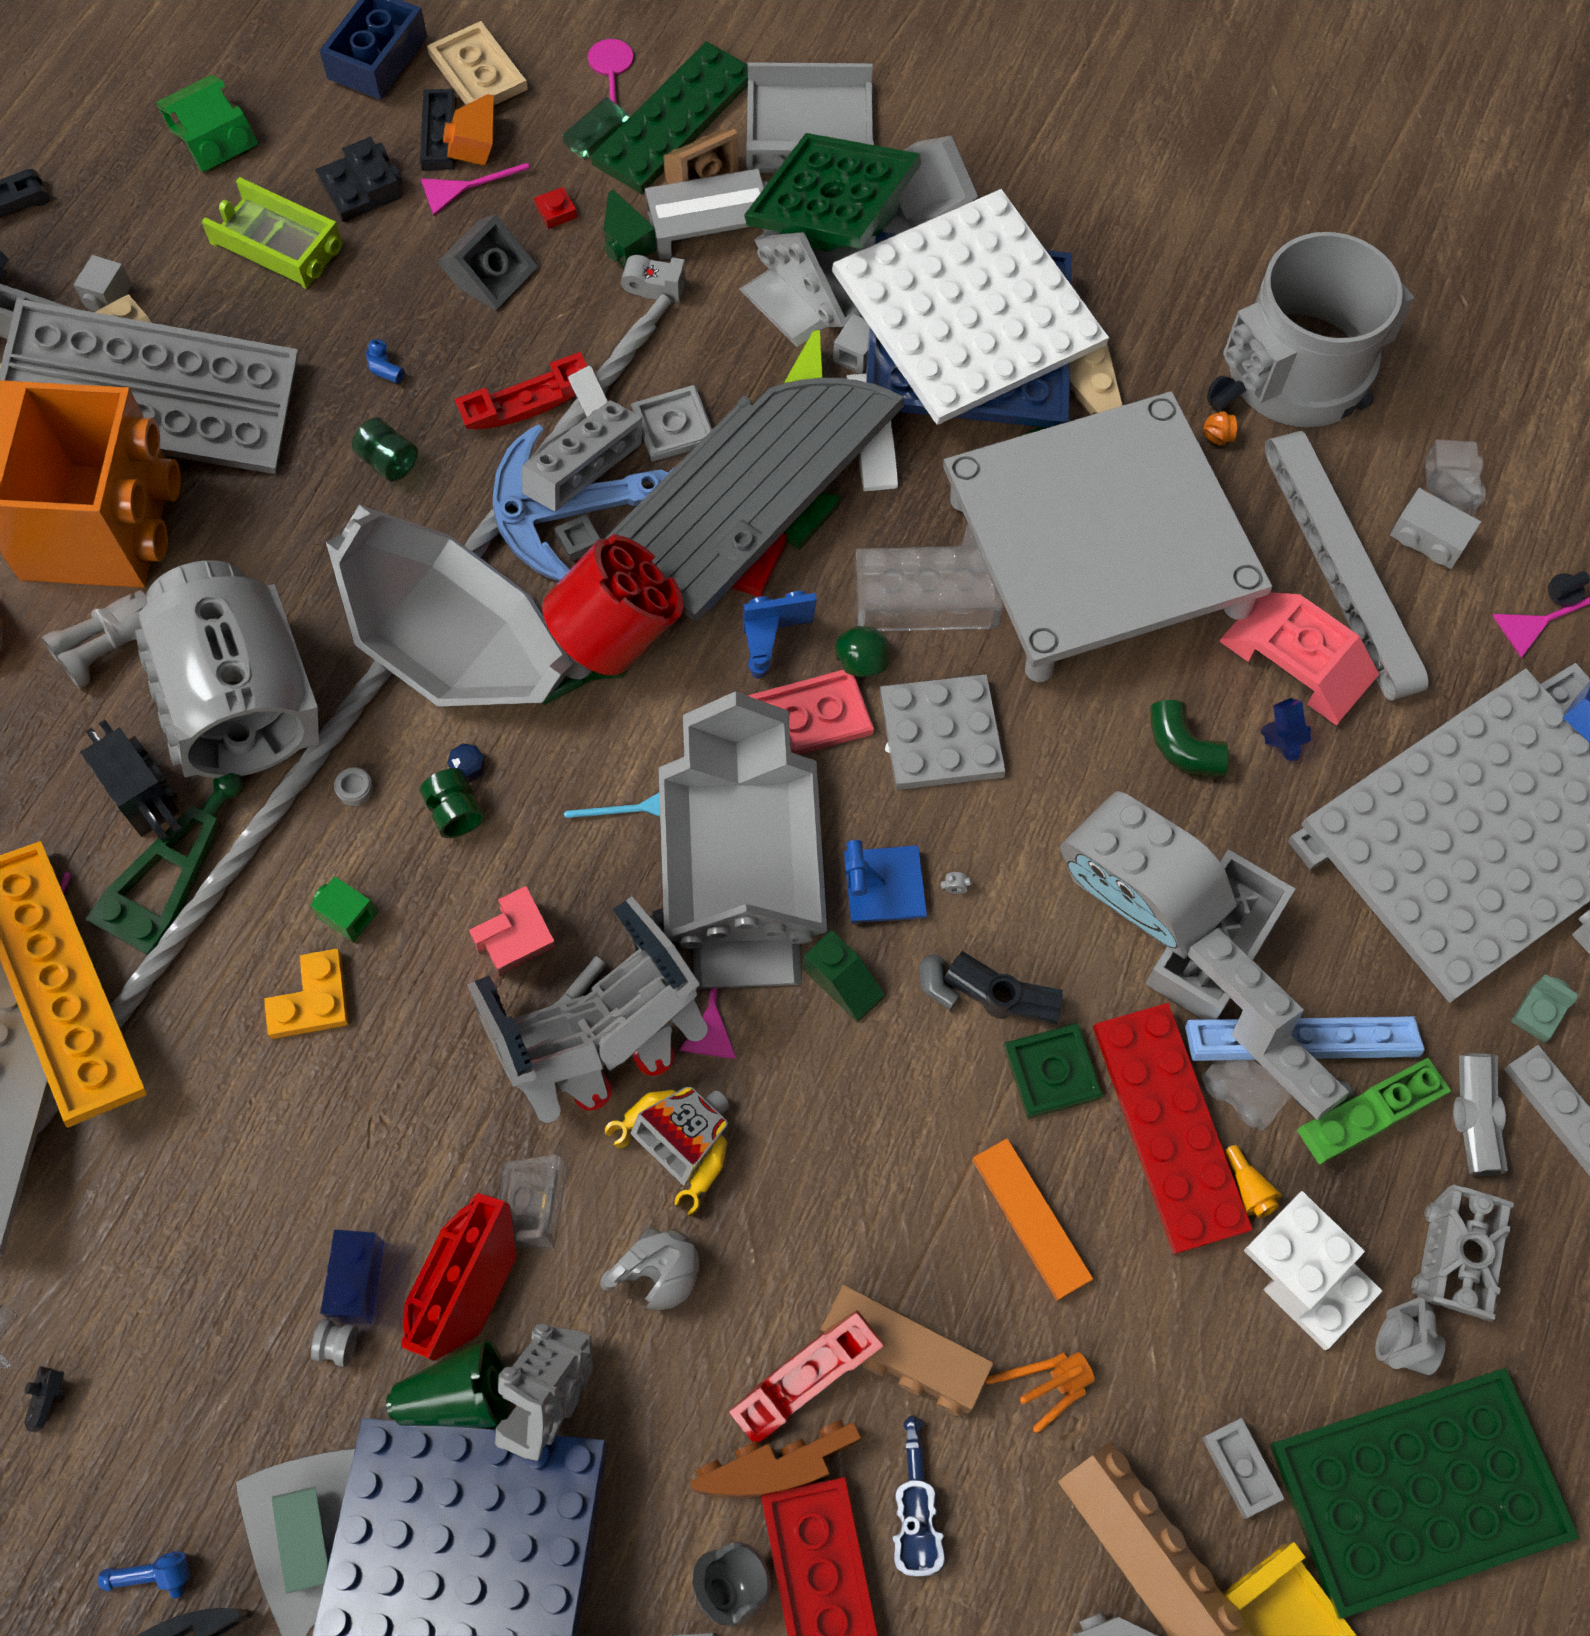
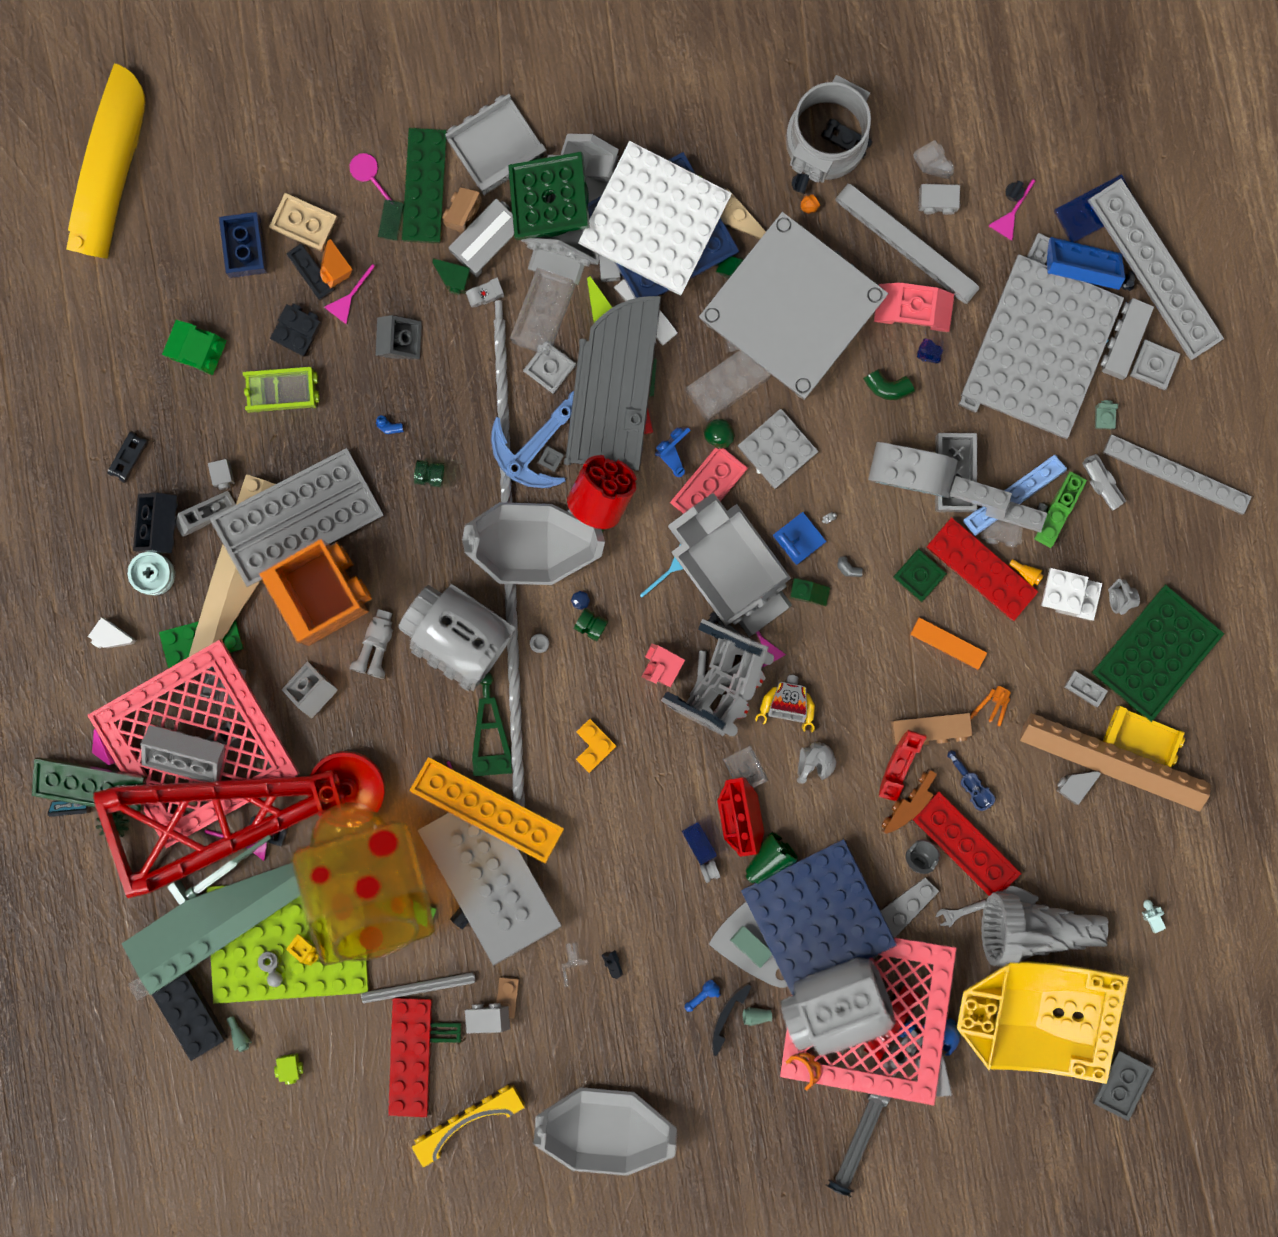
camera: 35 degrees left, 20 degrees up
(132, 781) = (448, 707): black brick -> none
(343, 908) = (579, 700): green brick -> none
(522, 400) = (471, 399): red slope -> none
(544, 1387) = (808, 836): light grey piece -> none
(555, 207) = (405, 281): red plate -> none
(581, 455) = (527, 419): light grey brick -> none
(587, 390) = (506, 382): white sticker -> none
(715, 337) = (542, 311): none -> clear brick
(1027, 1001) = (867, 557): black piece -> none
(1445, 1251) = (1117, 548): light grey piece -> none

